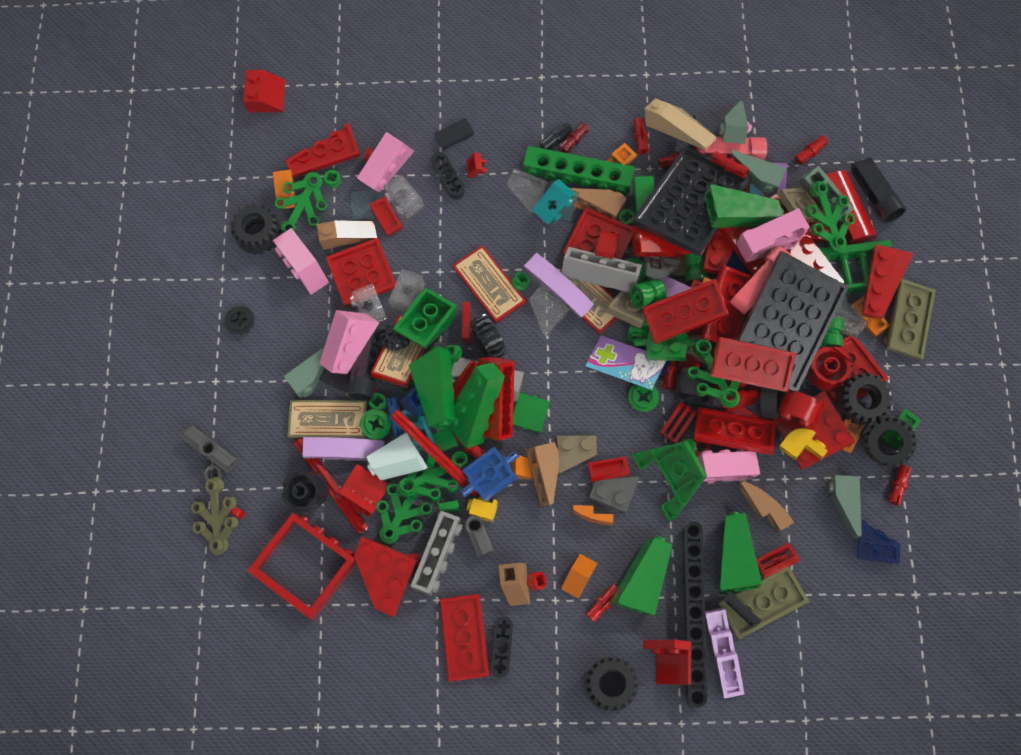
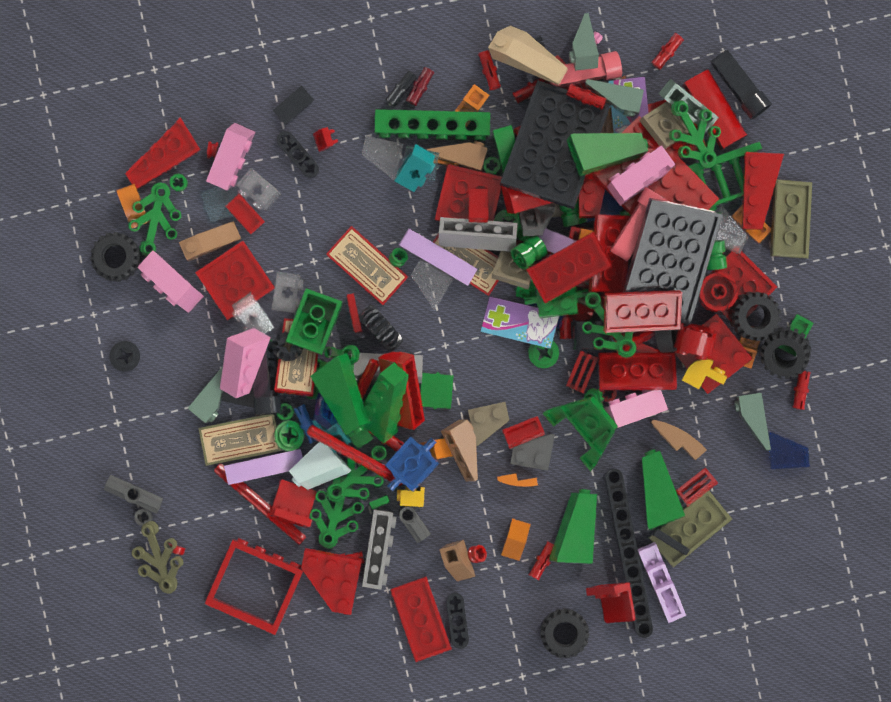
camera: 20 degrees left, 15 degrees up
(263, 91) = (80, 98): red slope -> none
(304, 490) = (239, 506): black brick -> none

